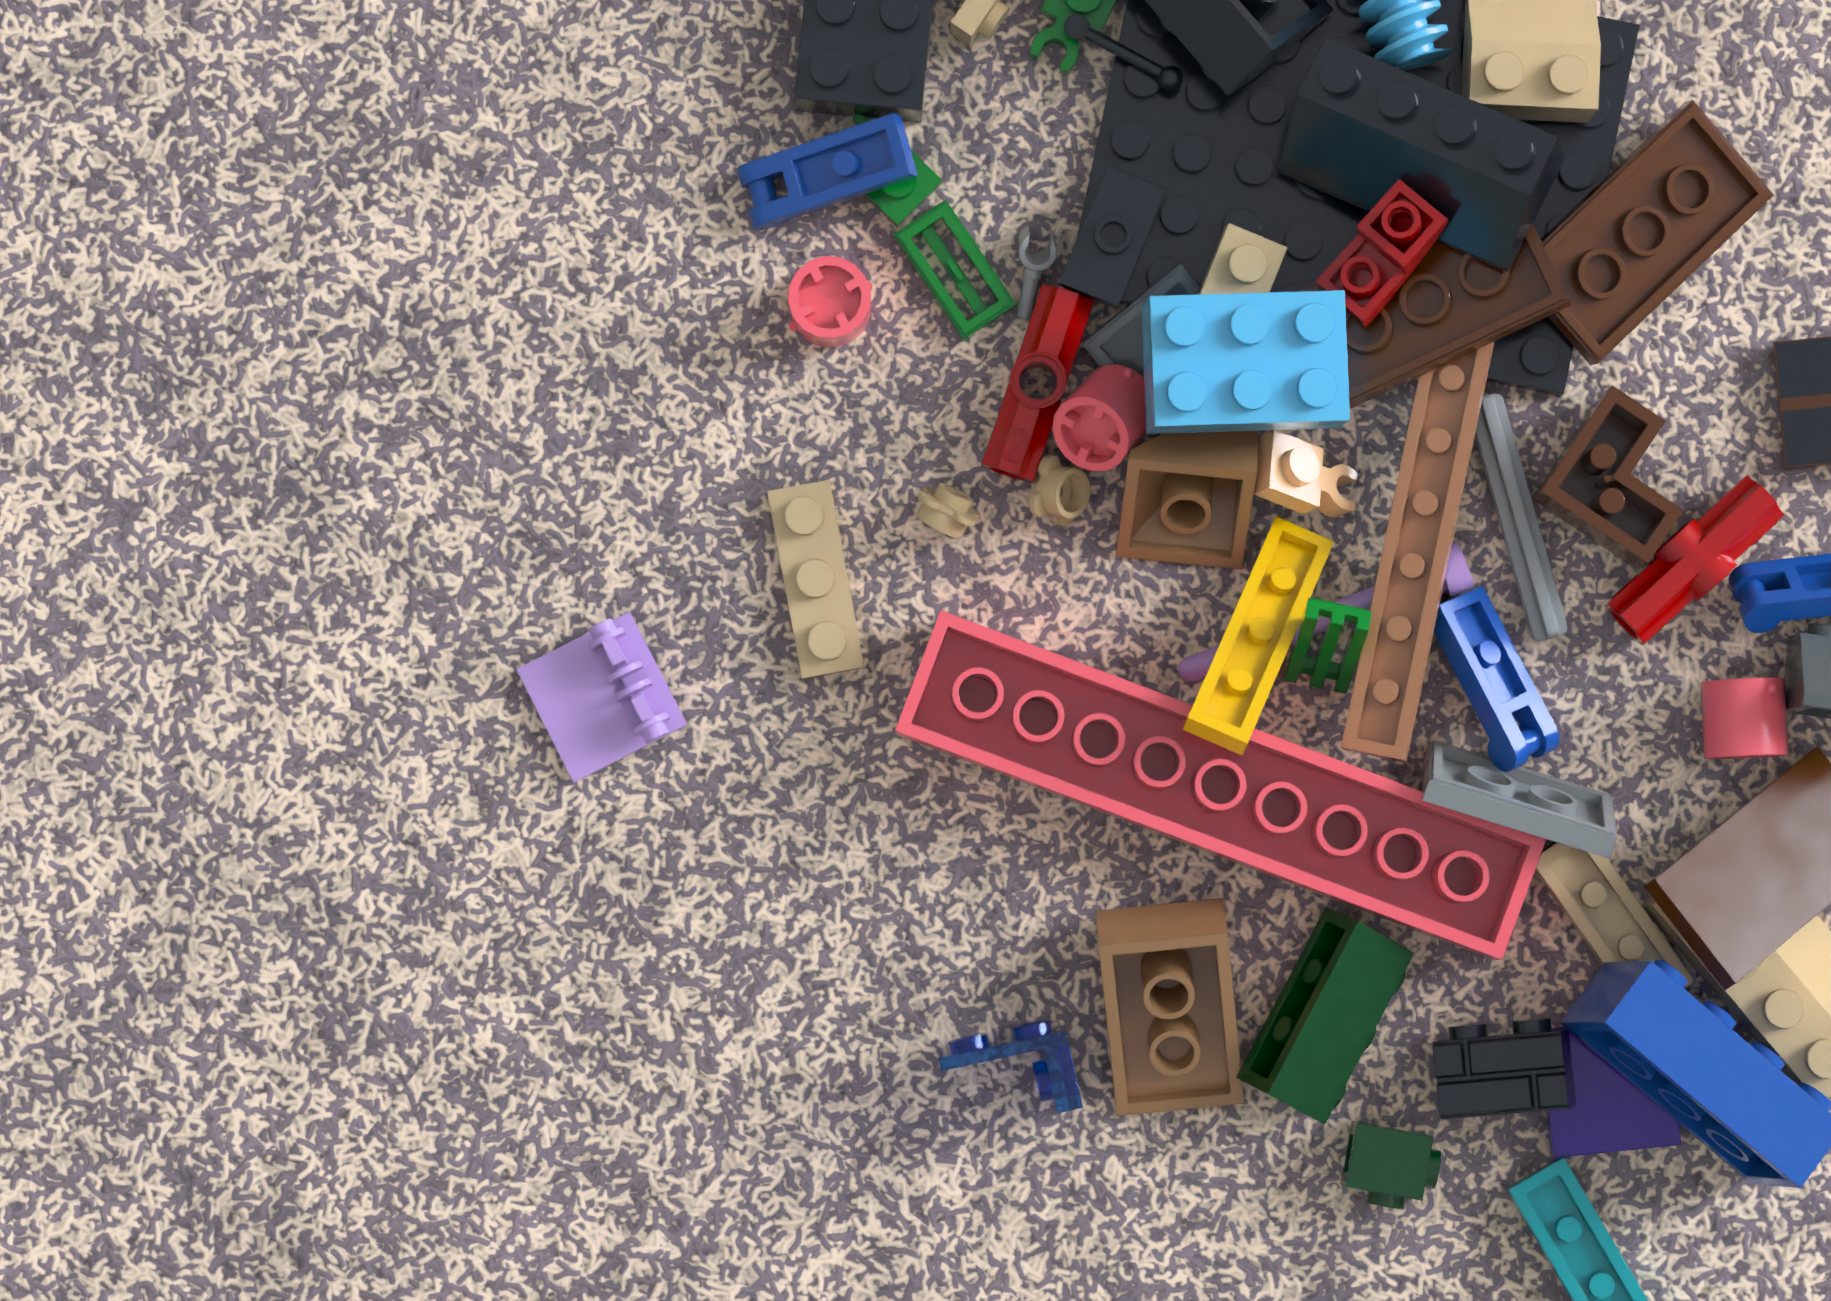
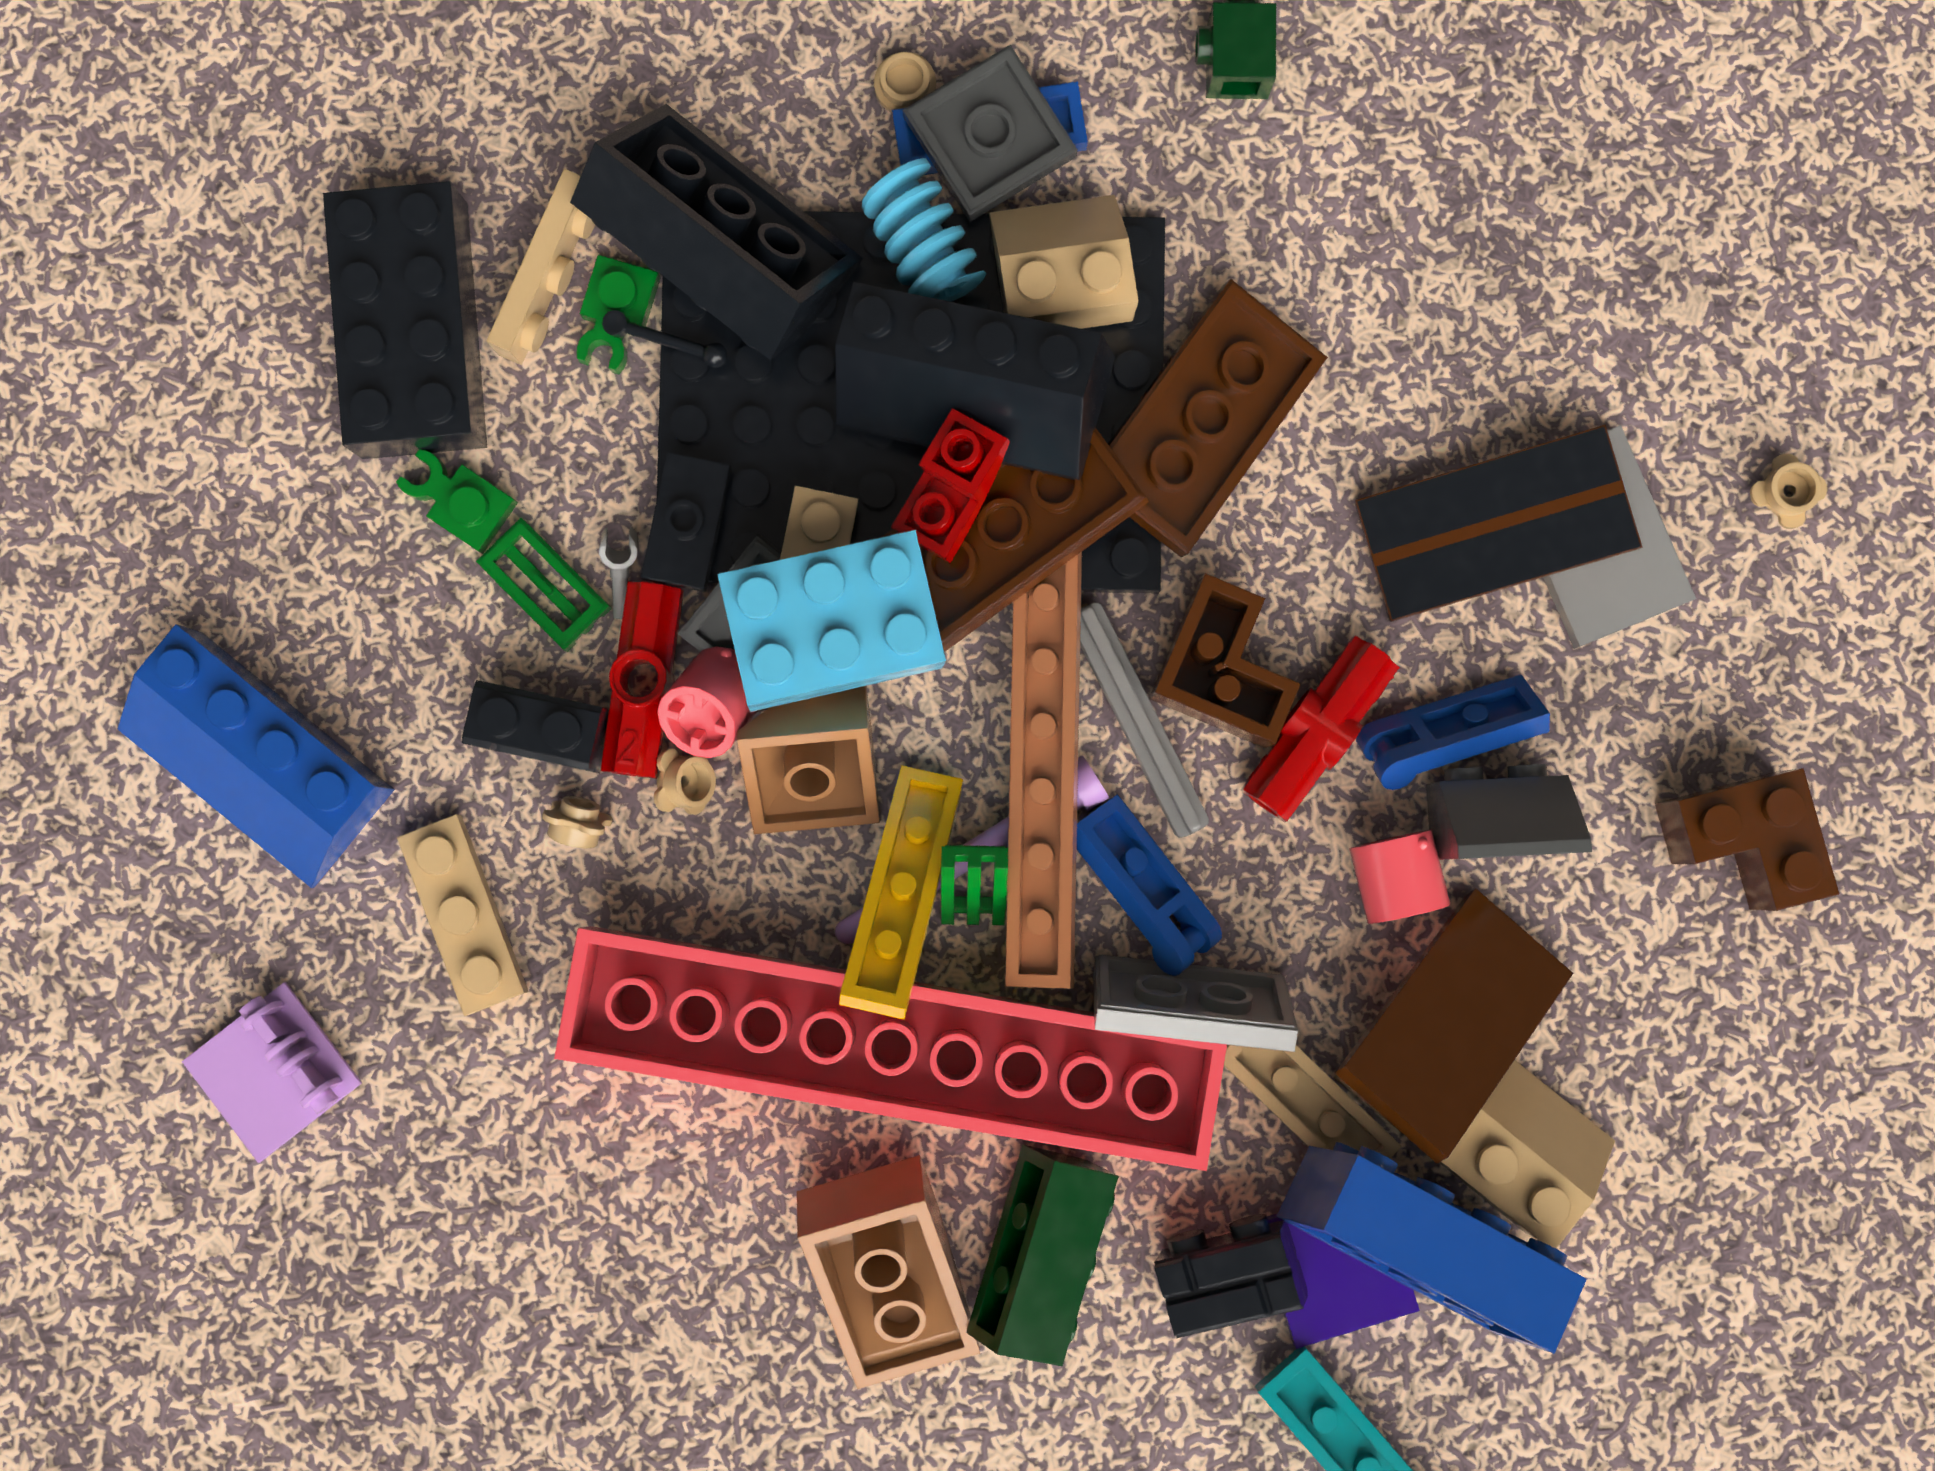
camera: 10 degrees left, 0 degrees up
(637, 383) = (250, 753): none -> blue slope
(828, 170) = (396, 510): blue plate -> none
(829, 301) = (421, 639): coral piece -> none
(928, 409) = (536, 726): none -> black brick
(1053, 1075) = (785, 1369): clear blue bracket -> none
(1294, 476) = (910, 724): light nougat plate -> none
(1390, 1164) = (1135, 1388): dark green brick -> none

